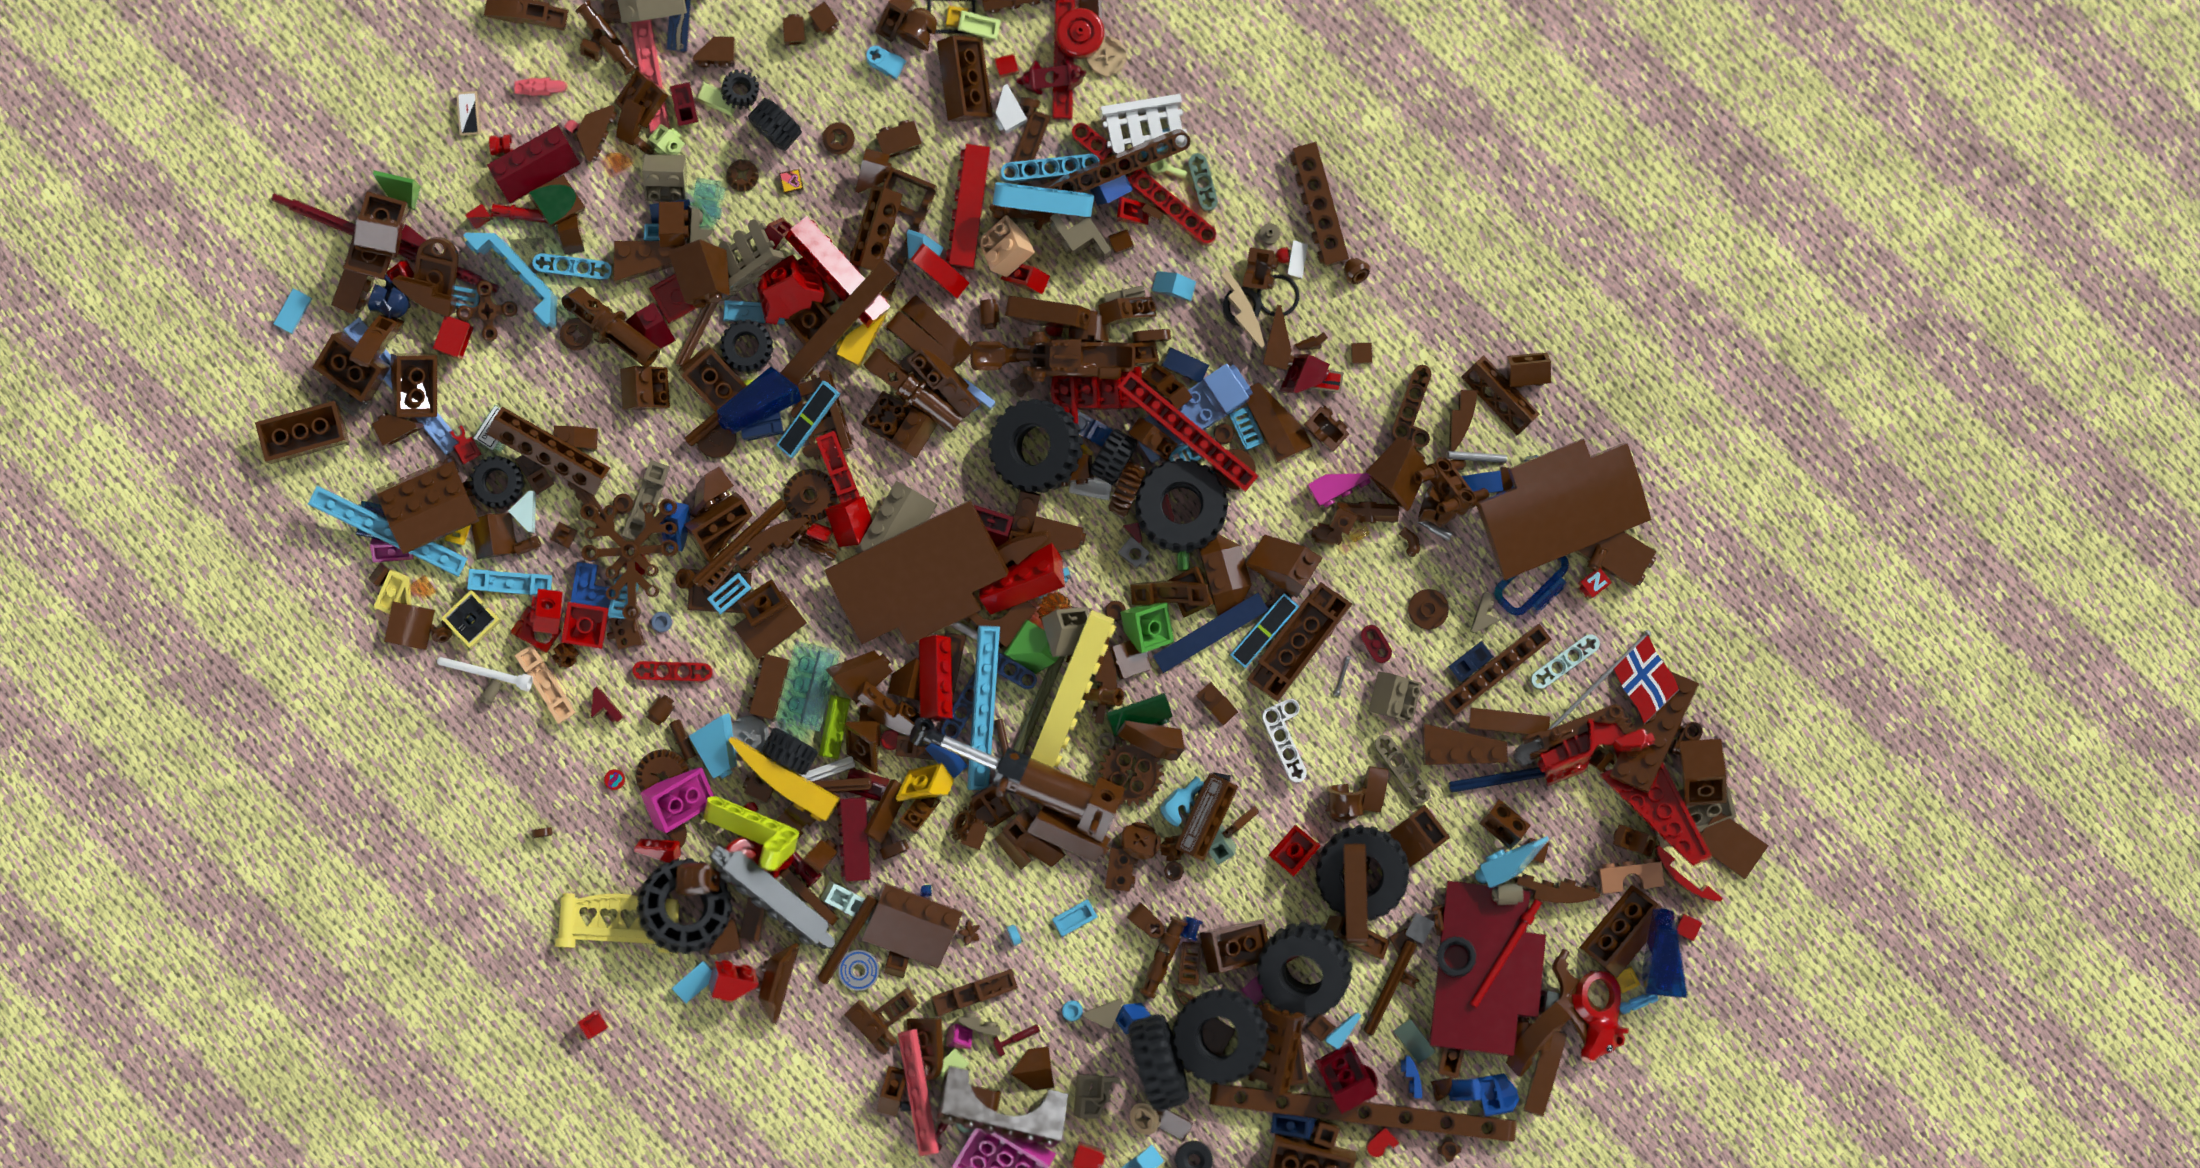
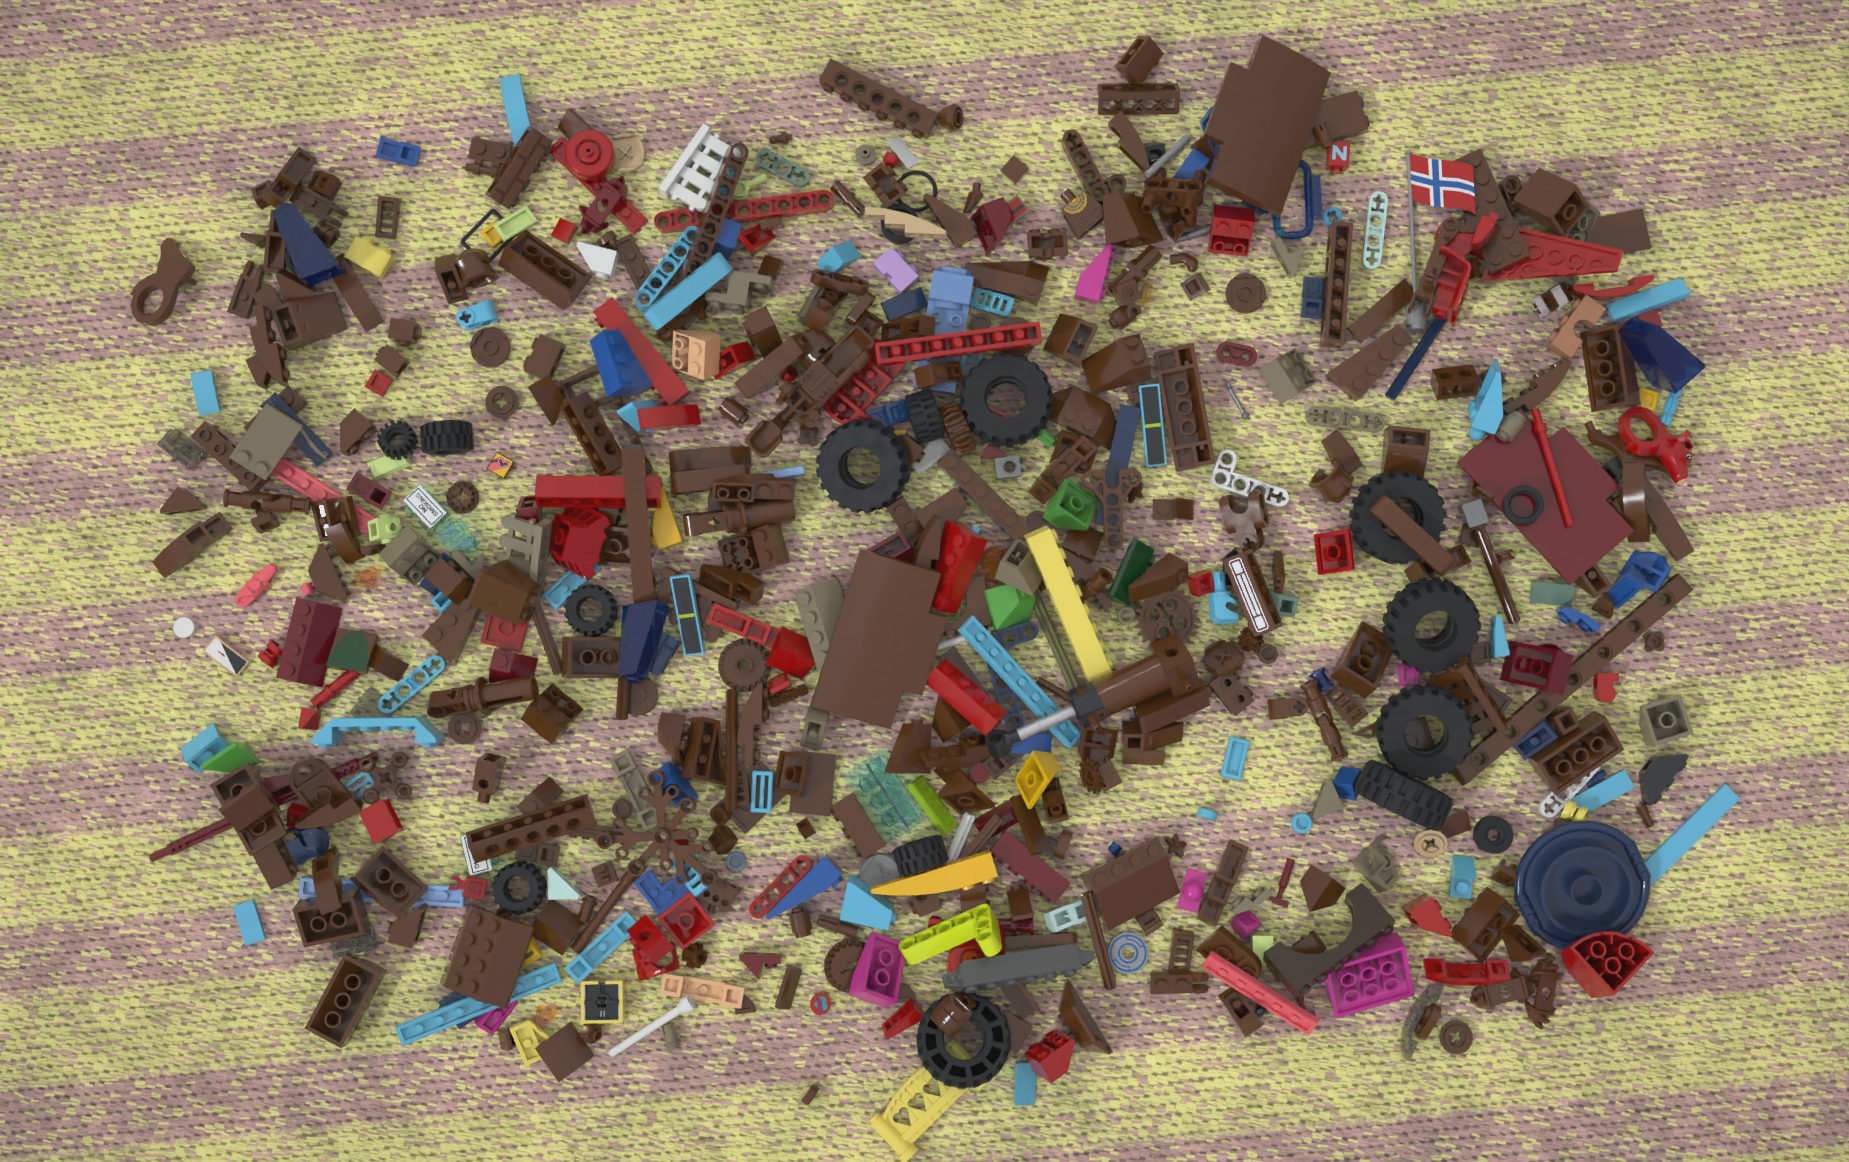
camera: 40 degrees left, 0 degrees up
(388, 159) = (203, 747): none -> medium azure panel
(461, 63) = (184, 627): none -> white tile
(506, 563) = (585, 936): none -> reddish brown piece
(563, 380) = (488, 768): none -> reddish brown torso
(563, 728) = (747, 1006): none -> reddish brown tile
(604, 745) = (788, 988): none -> reddish brown slope
(668, 598) = (723, 839): none -> reddish brown slope
(705, 693) = (818, 879): none -> blue slope
(710, 156) = (426, 508): none -> brick
(732, 650) = (805, 828): none -> reddish brown piece
(769, 36) = (379, 383): none -> red tile
(811, 589) = (814, 728): none -> dark tan slope
(861, 430) = (732, 583): none -> reddish brown slope
(872, 99) = (496, 347): none -> reddish brown tile
(943, 199) = (618, 365): none -> blue wedge
(948, 975) = (1192, 890): none -> dark pink tile
(1064, 281) = (762, 331): none -> reddish brown wedge
(1096, 554) = (983, 496): none -> reddish brown brick
(1156, 302) = (839, 282): none -> reddish brown beam
(1179, 638) = (1121, 491): none -> reddish brown beam
(1180, 774) = (1200, 583): none -> red slope
(1203, 662) = (1135, 492): none -> reddish brown plant
(1205, 332) = (900, 273): none -> lavender brick
(1225, 251) = (848, 198): none -> reddish brown pin
(1226, 161) = (783, 138): none -> reddish brown piece
(1255, 765) = (1248, 522): none -> reddish brown piece
(1272, 511) = (1070, 339): none -> reddish brown slope
(1374, 431) = (1081, 212): none -> reddish brown torso
(1399, 567) = (1195, 286): none -> reddish brown slope
(1464, 554) = (1231, 230): none -> red slope
(1471, 443) = (1154, 151): none -> black slope
(1551, 623) = (1325, 218): none -> dark azure bush
(1701, 912) = (1647, 300): none -> medium azure tile

